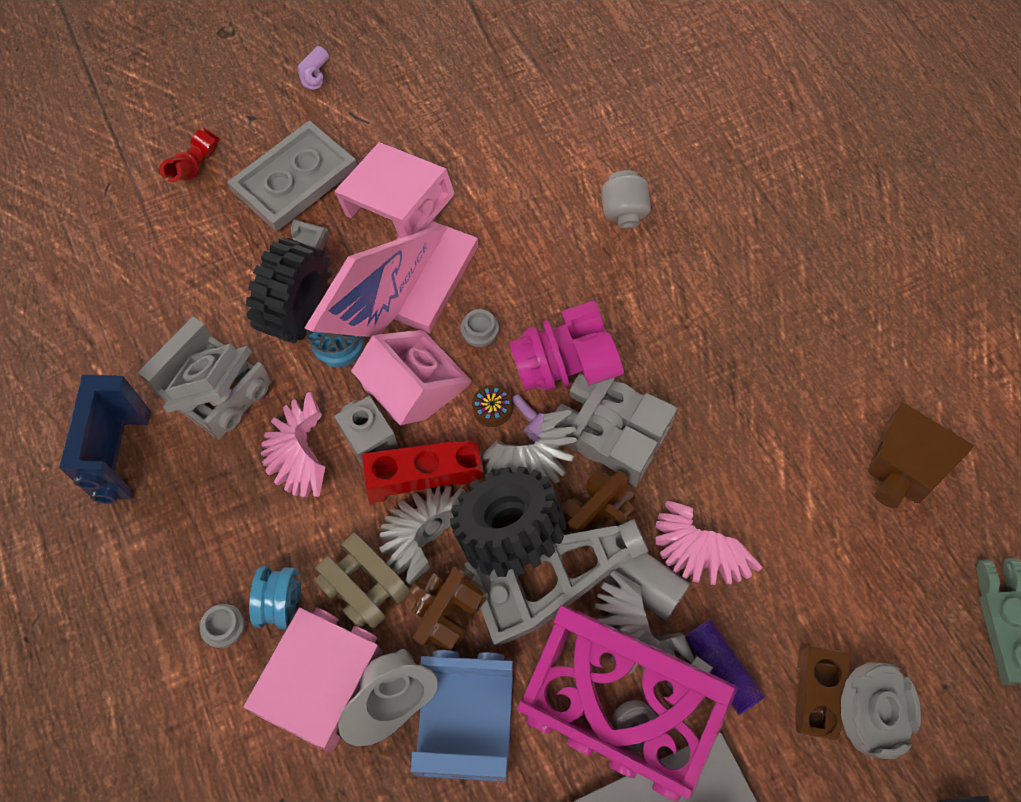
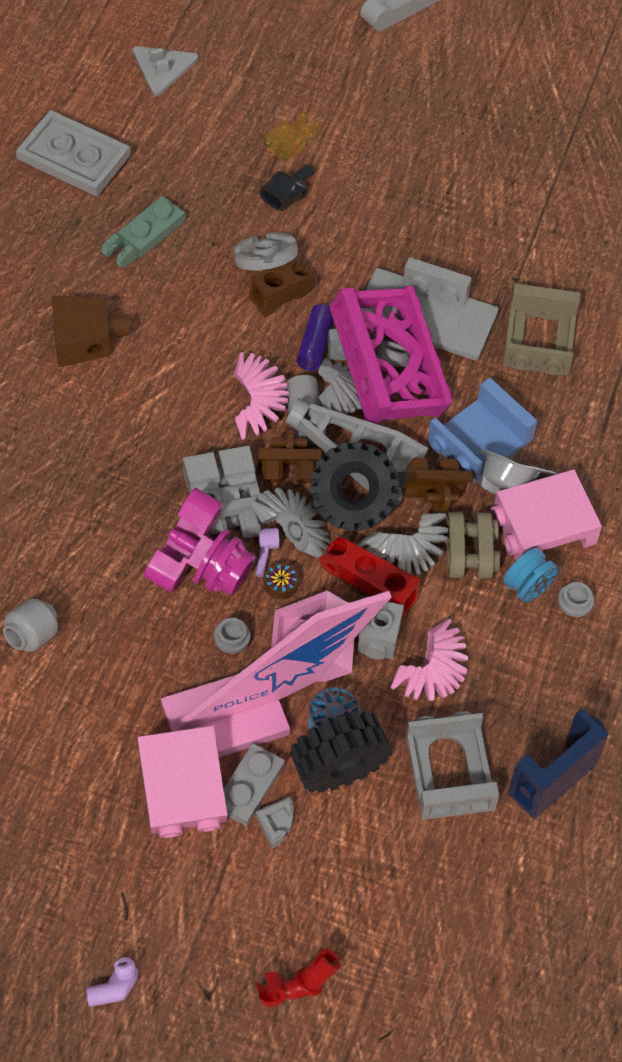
camera: 140 degrees left, 5 degrees down
(206, 378) = (459, 729): light grey piece -> none
(292, 175) = (234, 884): light grey plate -> none
(348, 234) = (251, 783): none -> light grey plate

